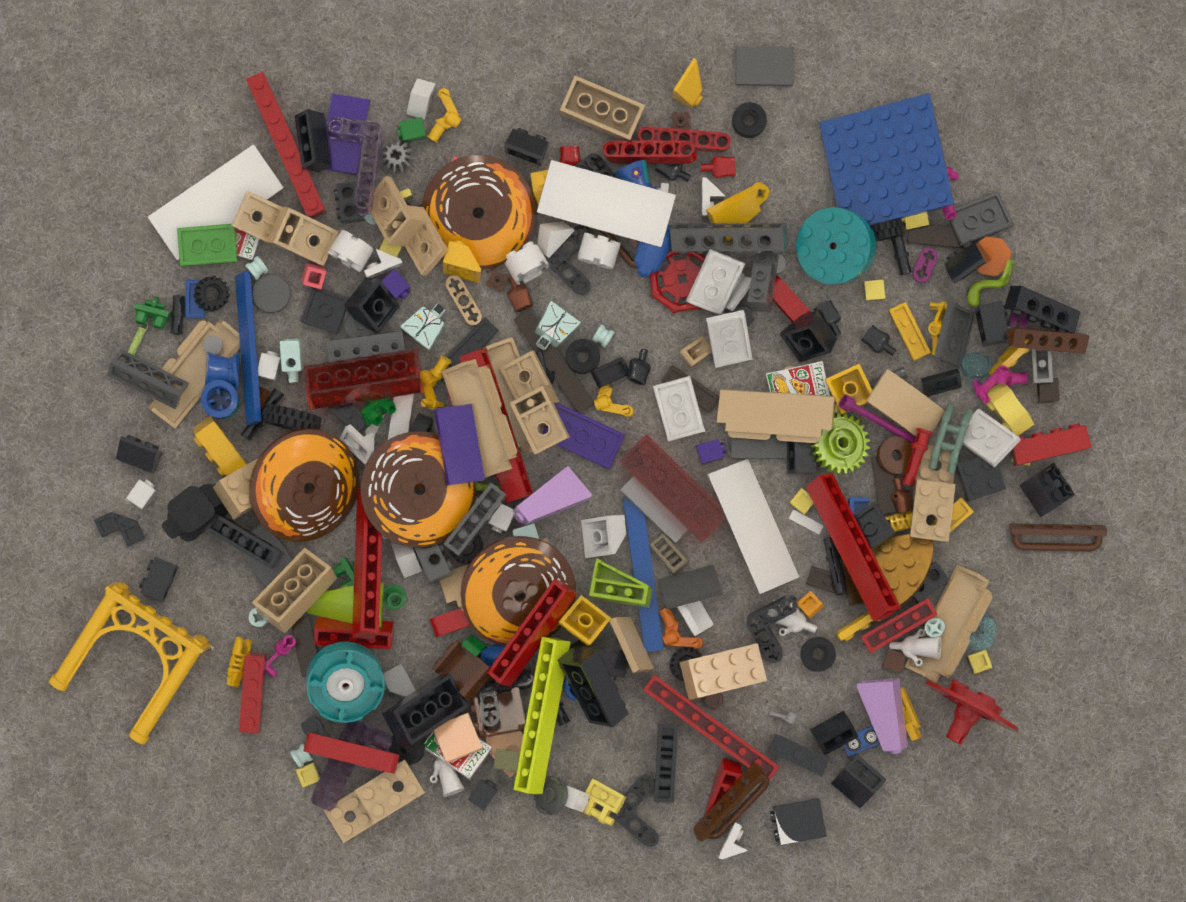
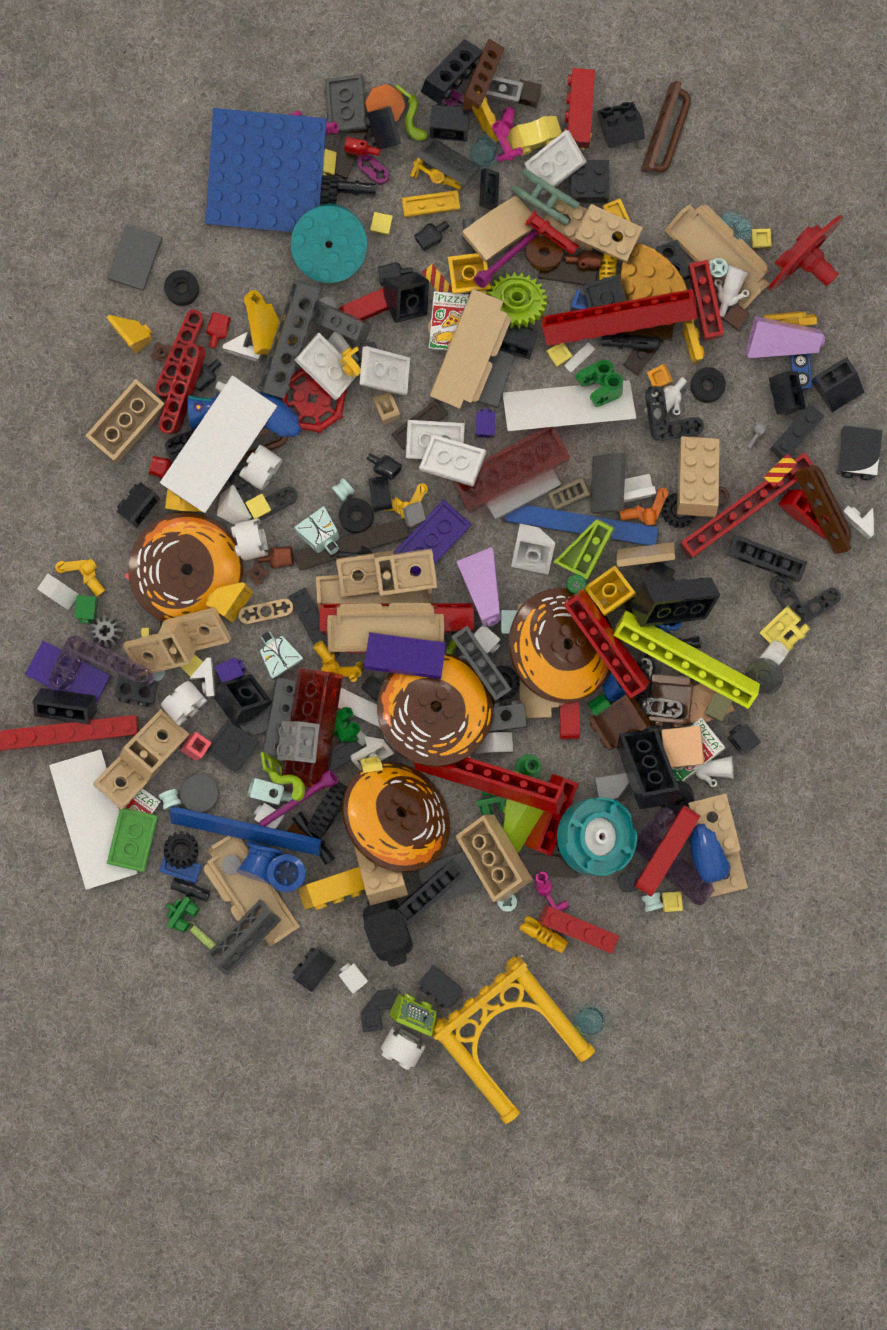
camera: 70 degrees left, 0 degrees up
(89, 561) = (402, 1047): none -> white brick
(124, 562) = (413, 1014): none -> slope
(169, 730) = (589, 1021): none -> clear light blue hair
(304, 383) = (298, 785): none -> lime piece
(317, 409) = (328, 780): none -> magenta piece
(345, 370) = (298, 741): none -> light grey bracket
(347, 446) = (371, 764): none -> light yellow tile
(359, 794) = (708, 855): none -> blue hair
(560, 260) = (258, 506): none -> light yellow tile
(581, 586) = (575, 583): none -> green tile
(600, 410) = (413, 513): none -> light grey tile
(663, 431) = (452, 460): none -> white tile
(721, 303) = (350, 367): none -> yellow bracket
(754, 748) = (780, 470): none -> sticker
(792, 557) = (604, 375): none -> green piece
(837, 360) = (436, 279): none -> sticker
(939, 245) = (360, 147): none -> red piece

